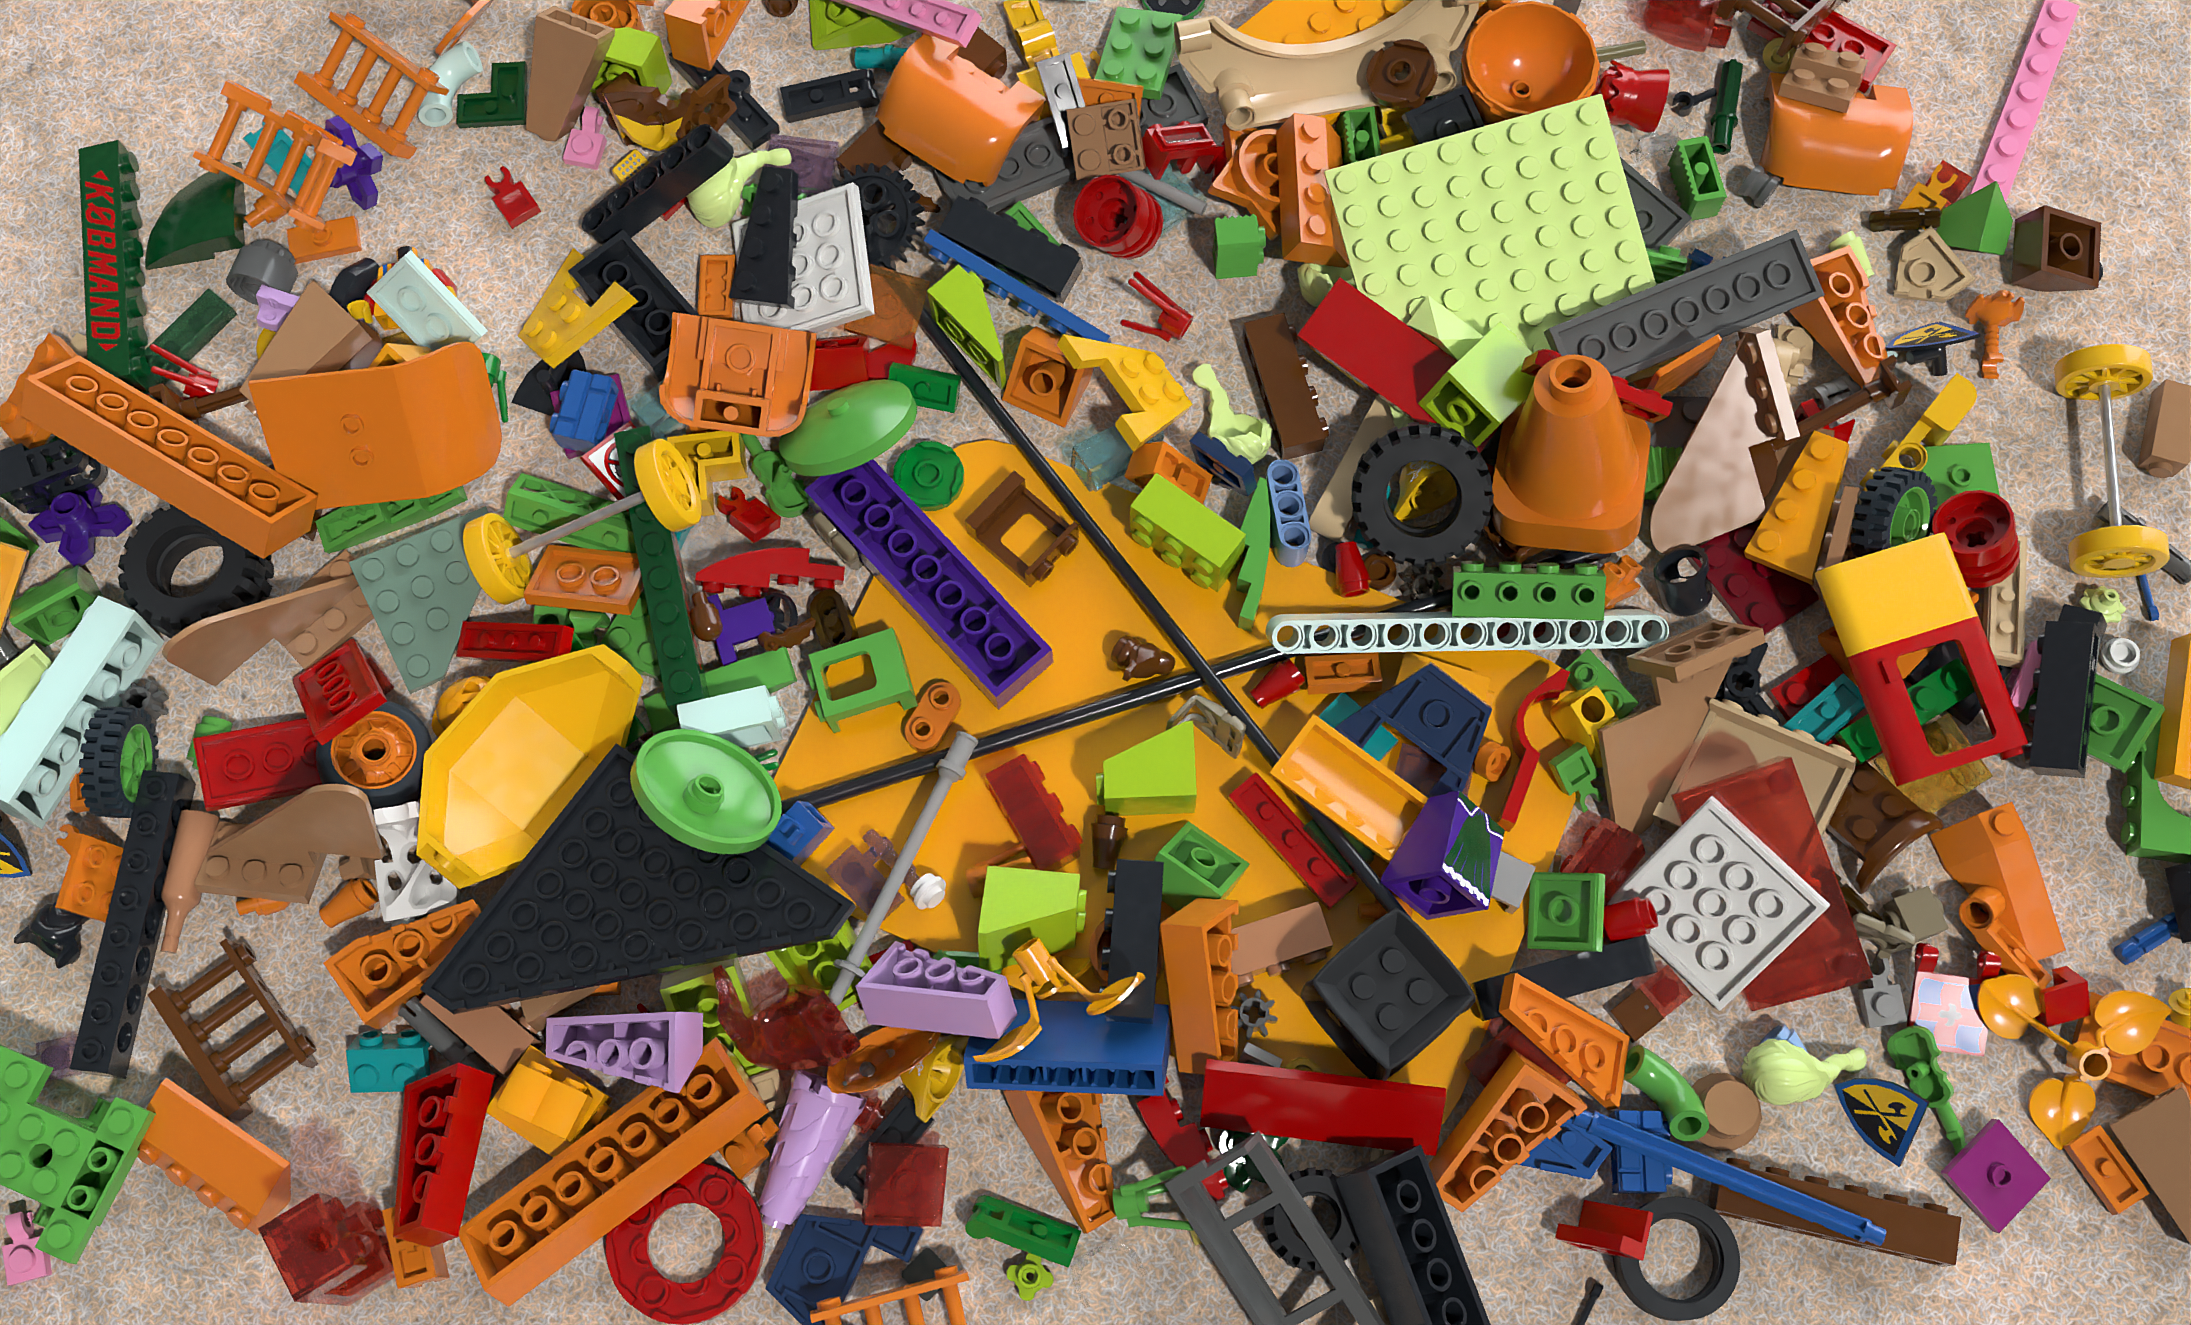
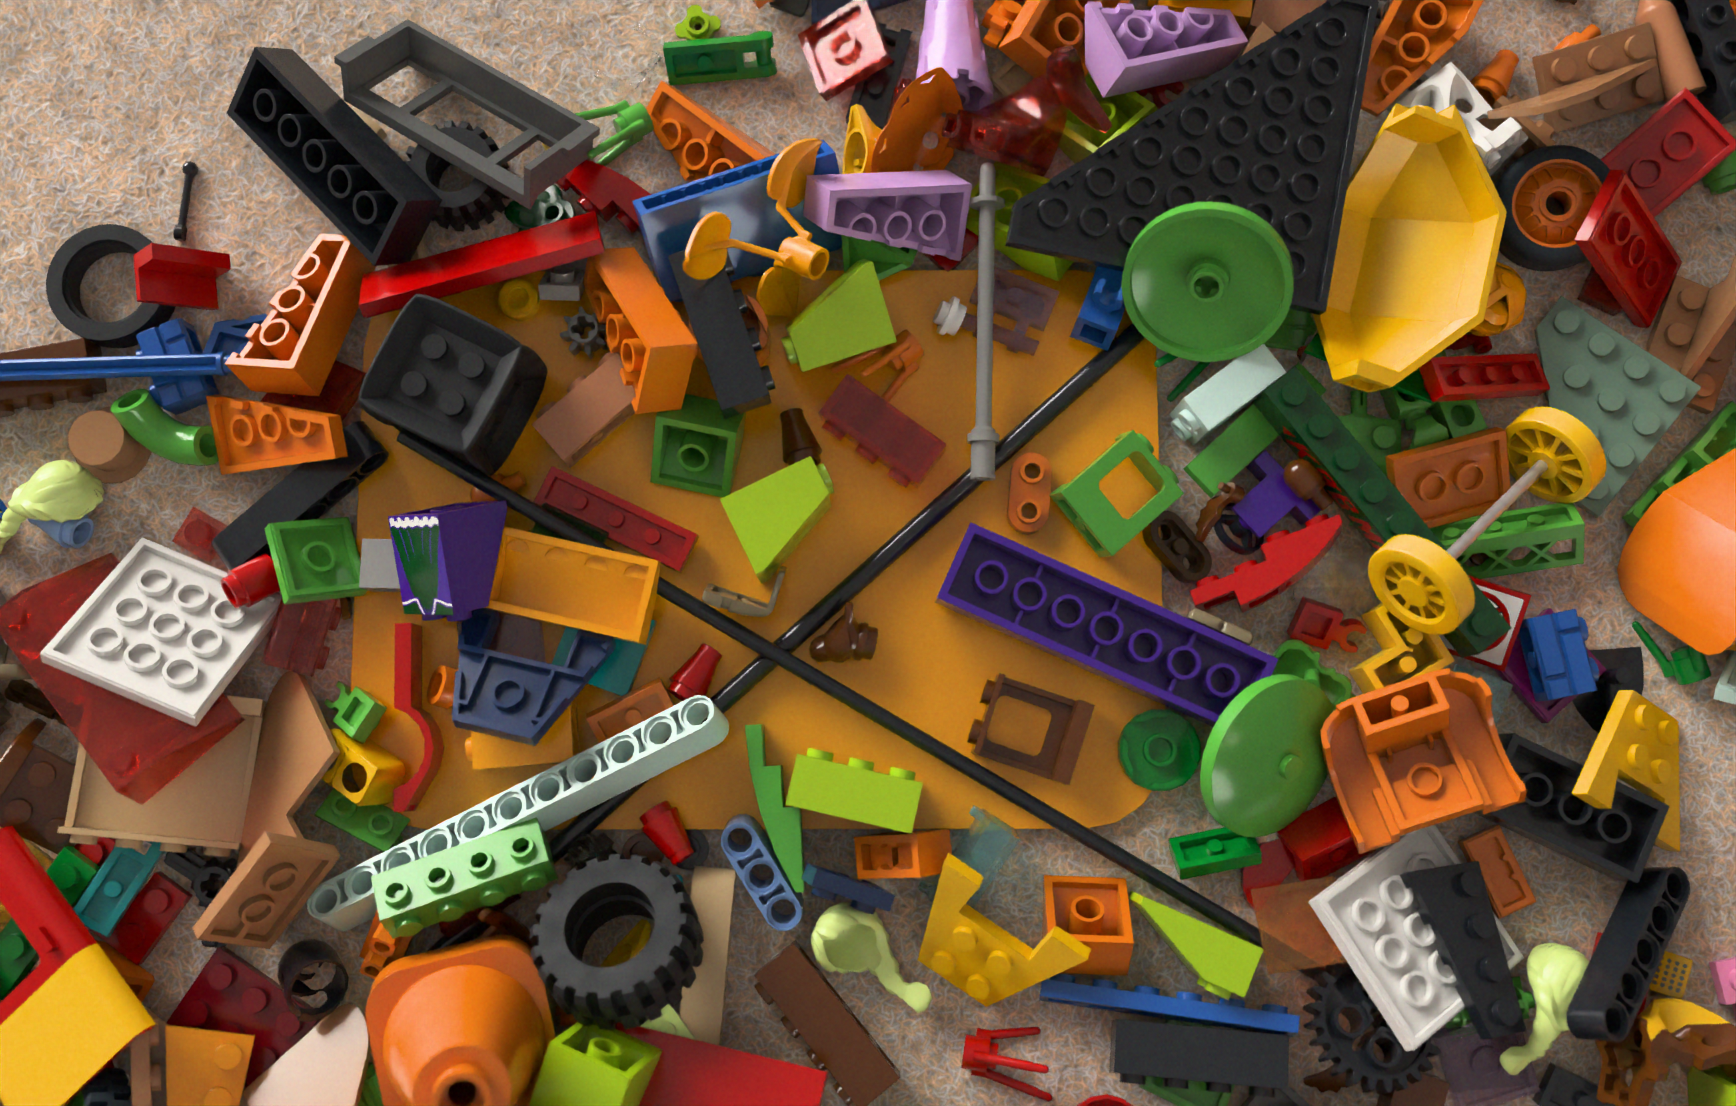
camera: 155 degrees right, 10 degrees up
(1636, 1015) = (222, 499): reddish brown tile -> none

